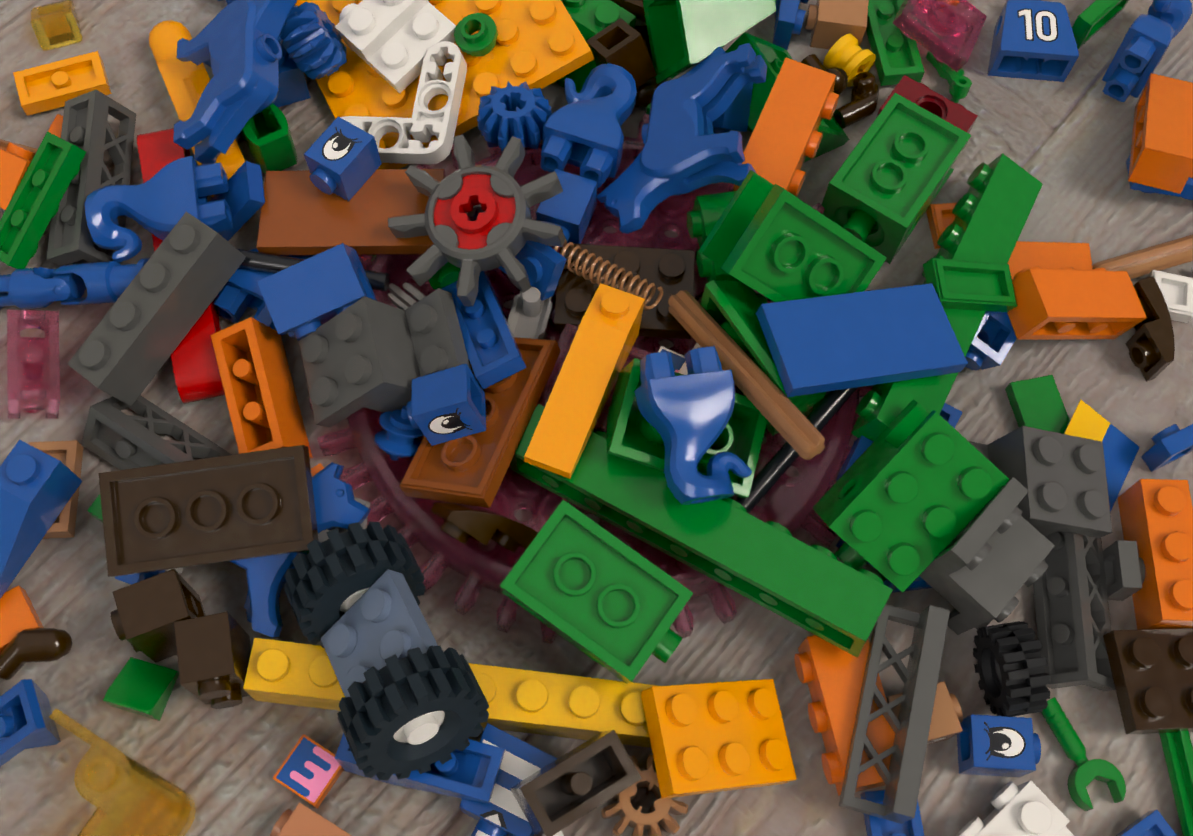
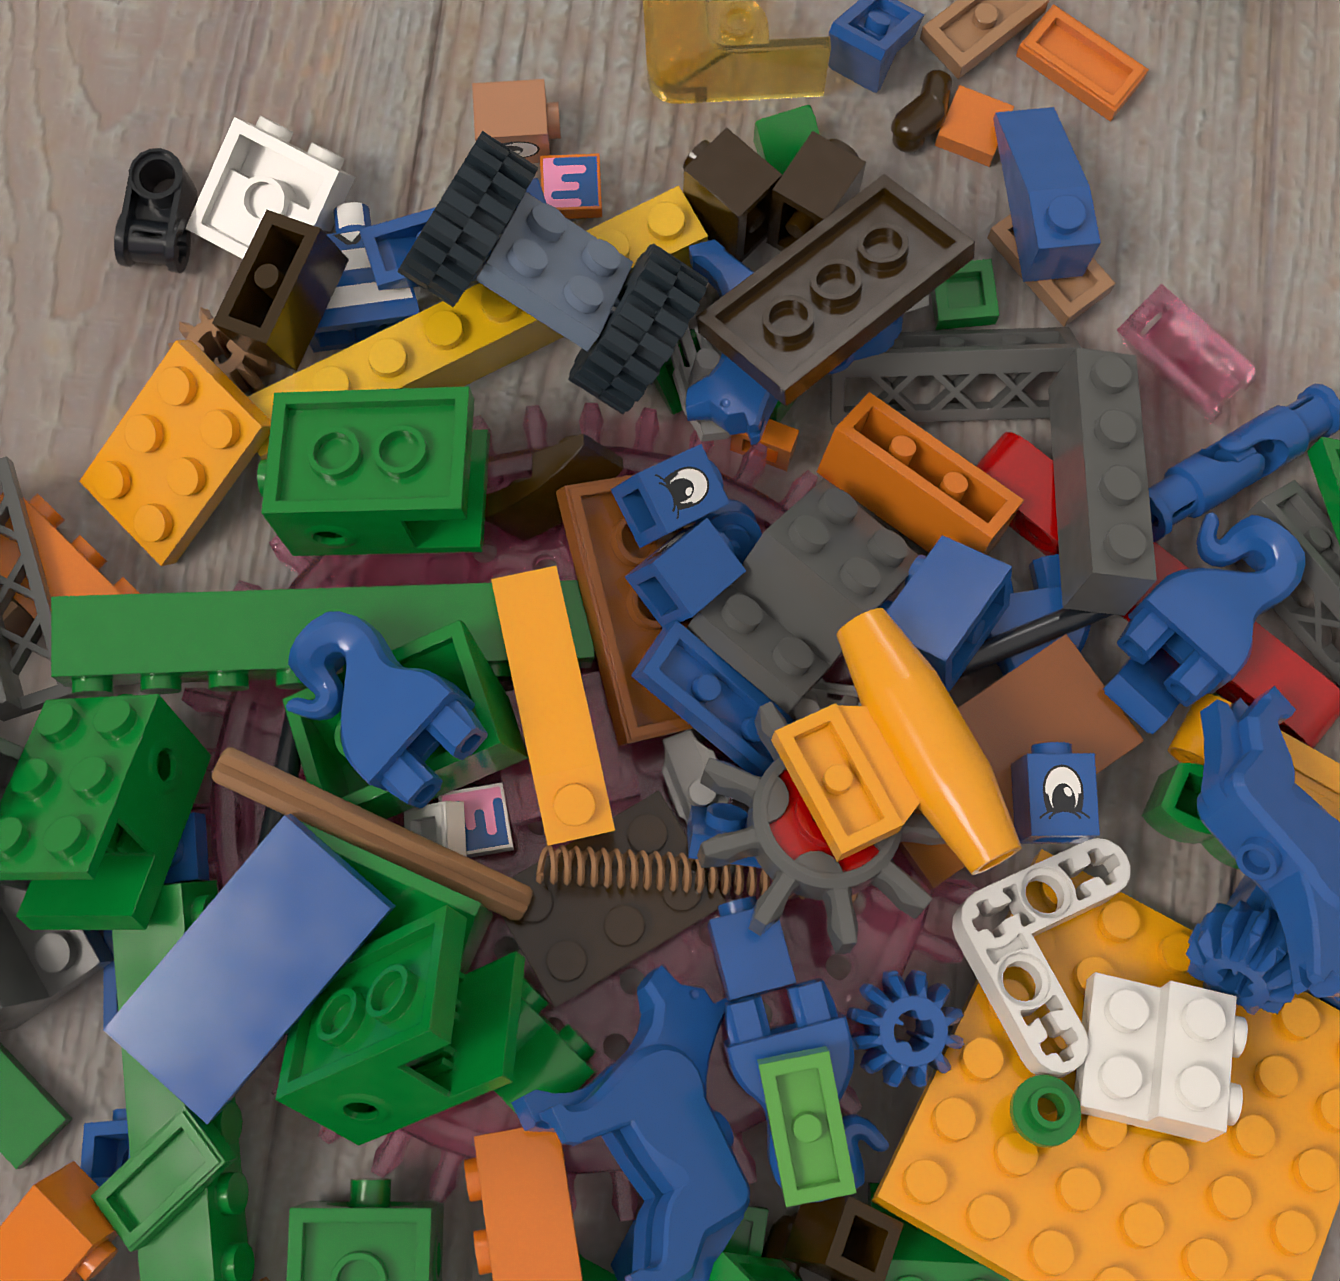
camera: 150 degrees right, 10 degrees up
(415, 206) = (896, 752): none -> light orange plate
(421, 452) = (670, 495): none -> blue brick
(604, 88) = (806, 1126): none -> bright green plate

